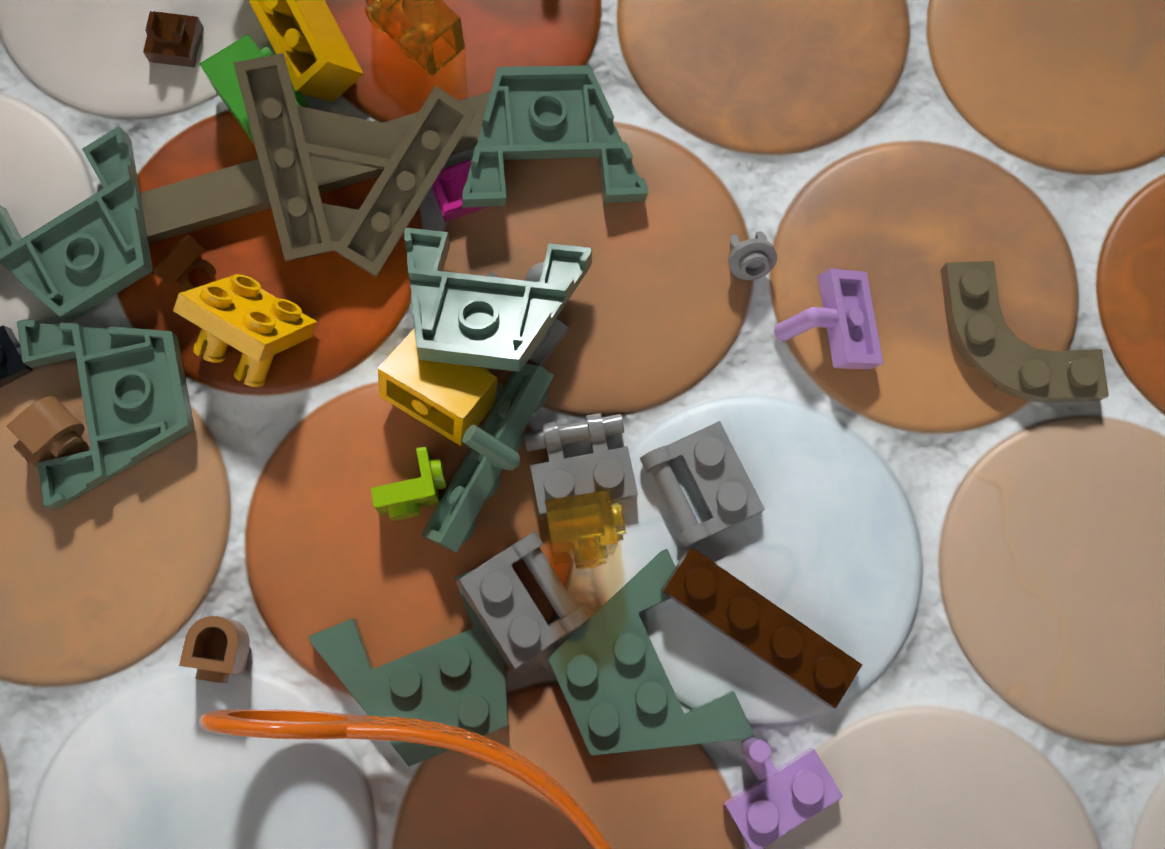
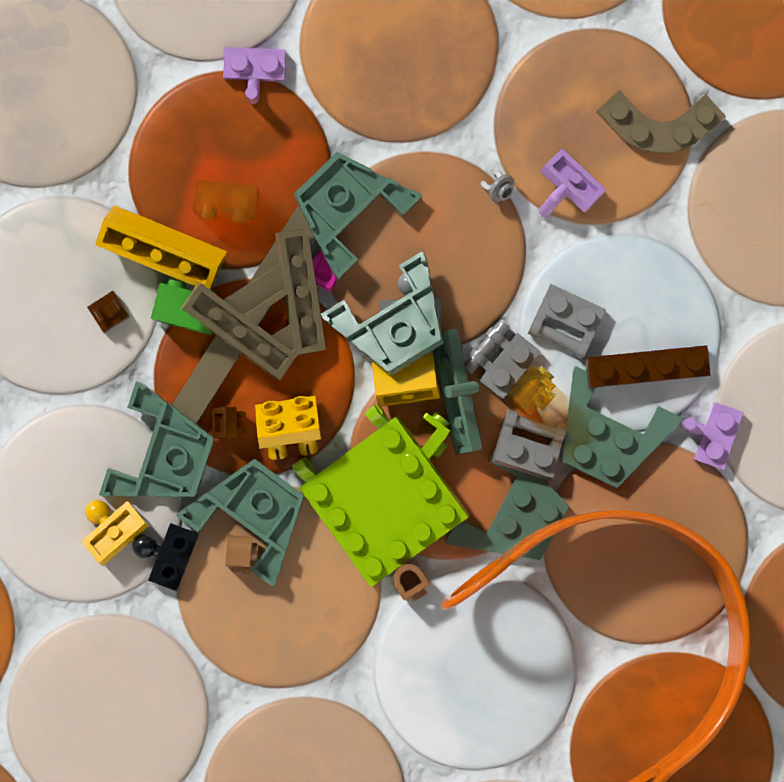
camera: 35 degrees left, 10 degrees up
(278, 511) = (382, 498): none -> lime plate

